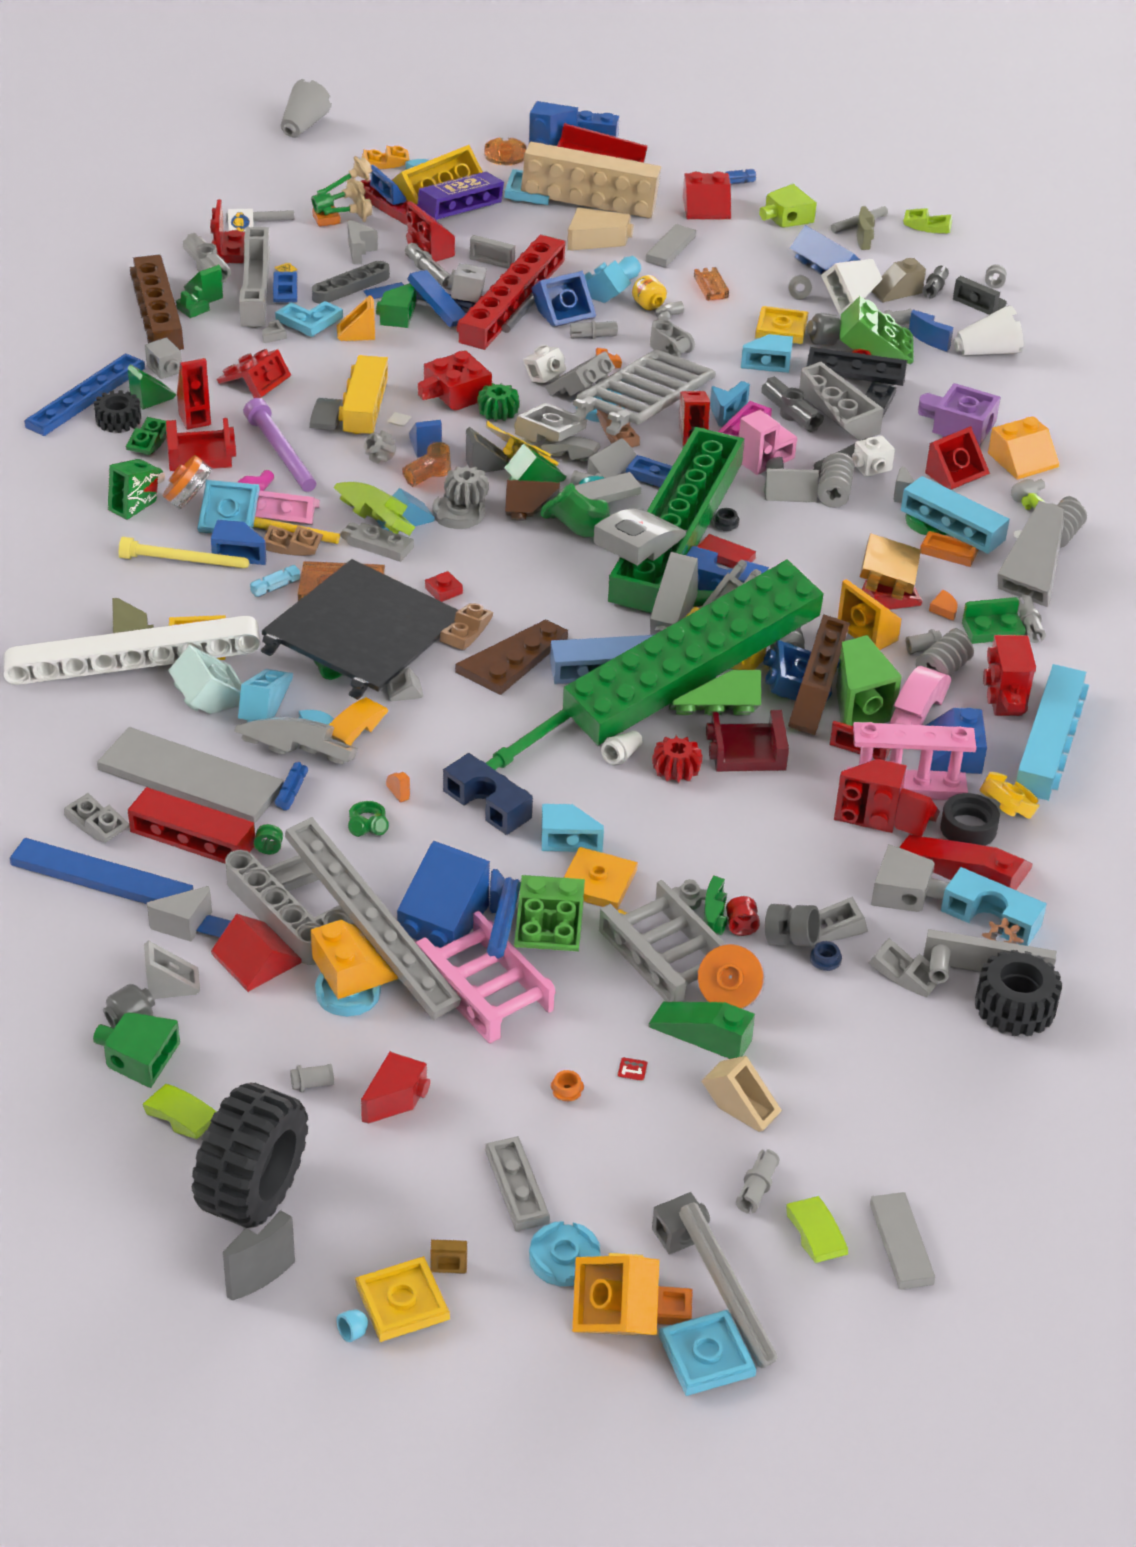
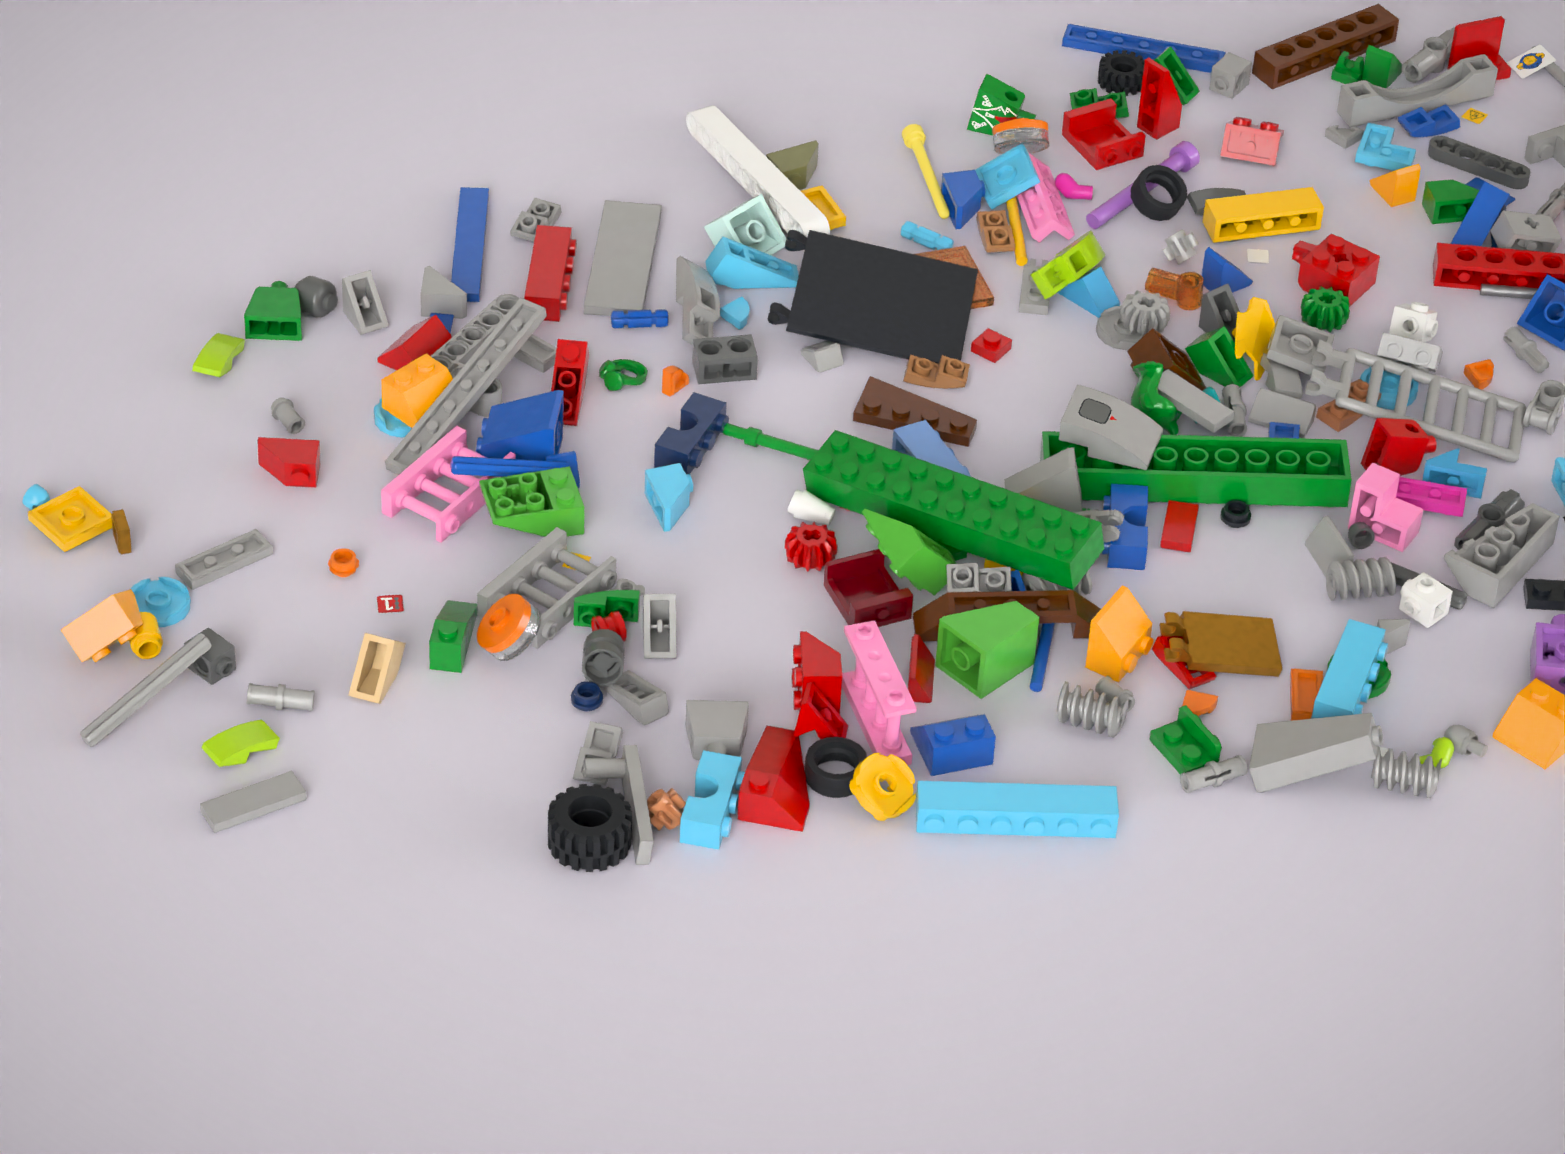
camera: 70 degrees right, 0 degrees up
(249, 1154) = (157, 350): black tyre -> none
(258, 1258) = (70, 423): dark grey slope -> none
(265, 845) = (557, 320): green bush -> none
(304, 436) = (1170, 181): none -> black tyre
(357, 717) = (763, 334): light orange slope -> none
(373, 854) = (570, 376): none -> red slope
(387, 743) = (724, 359): none -> dark grey brick
(604, 875) = (619, 532): light orange plate -> none
(674, 1305) = (125, 674): orange tile -> none
(707, 1352) = (77, 698): medium azure plate -> none
(755, 880) = (659, 625): none -> light grey slope
(791, 662) = (971, 578): none -> light grey slope
(918, 695) = (1000, 687): bright pink arch -> none
(956, 459) = (1472, 669): red slope -> none
(1009, 674) = (1072, 753): red hinge -> none

